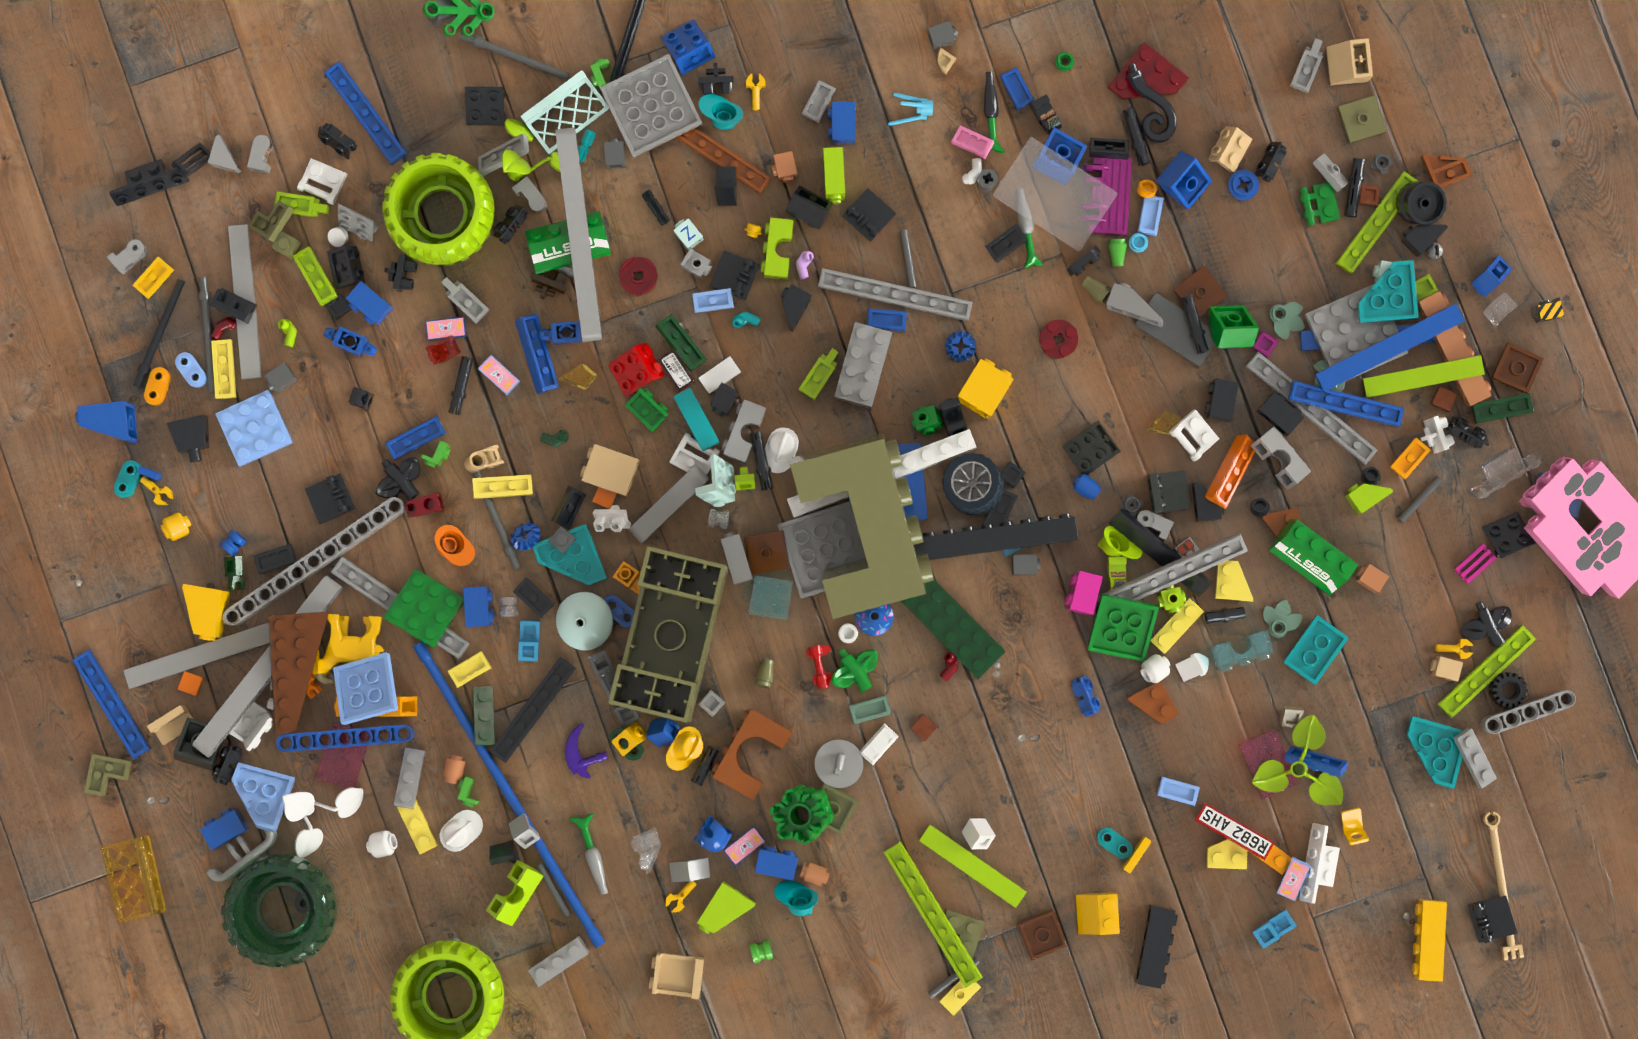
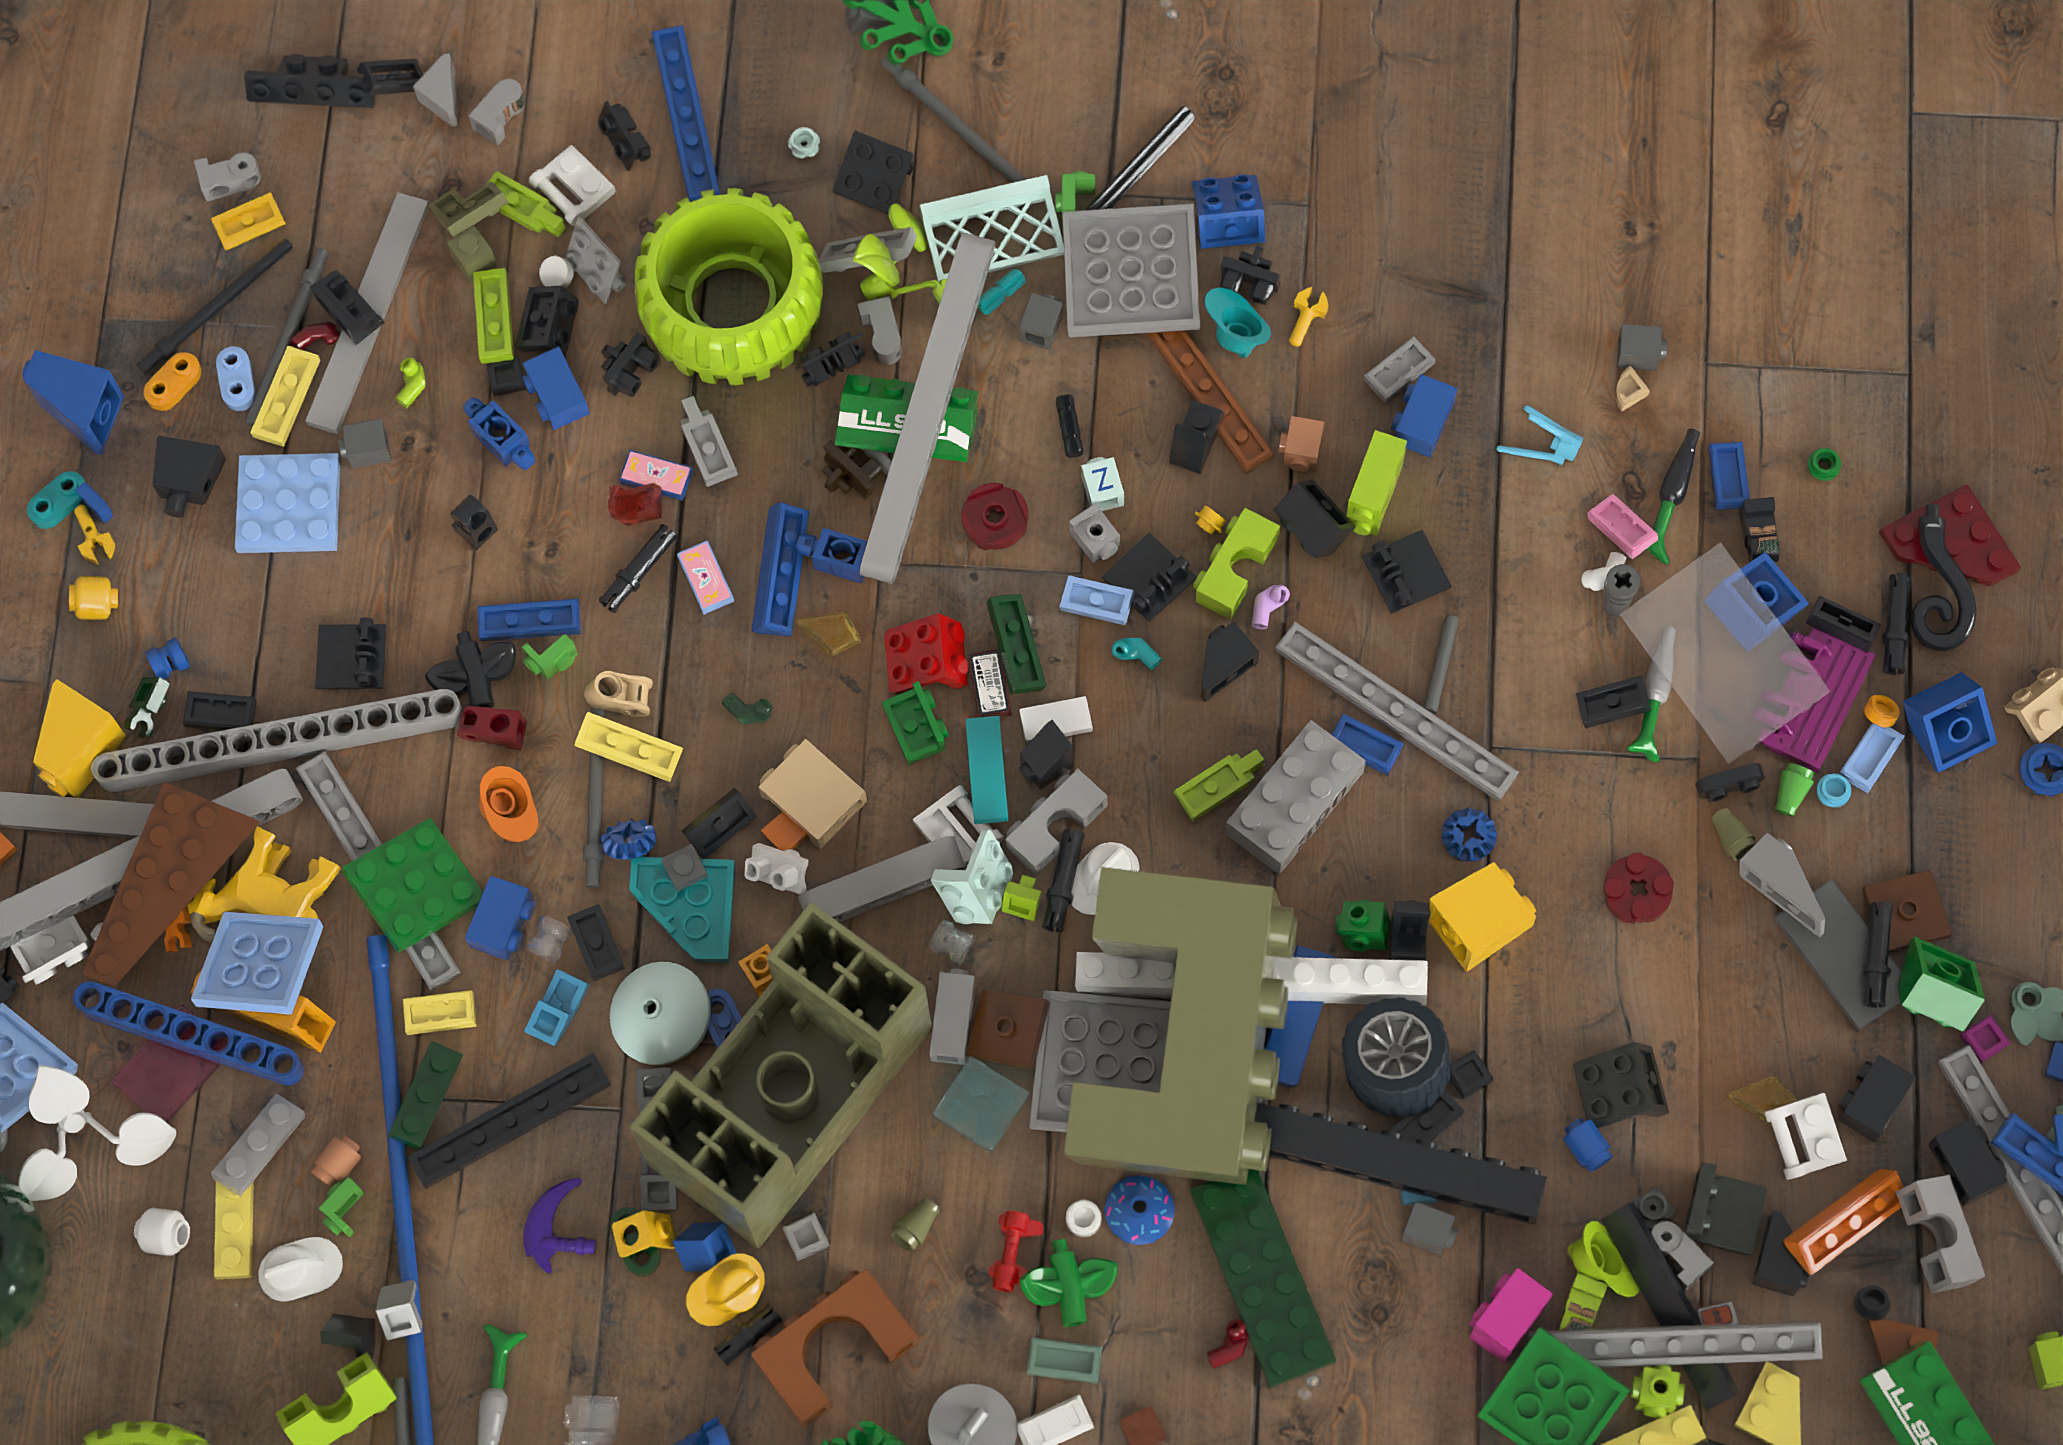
camera: 30 degrees right, 15 degrees down
(438, 98) = (804, 135): none -> light aqua plate

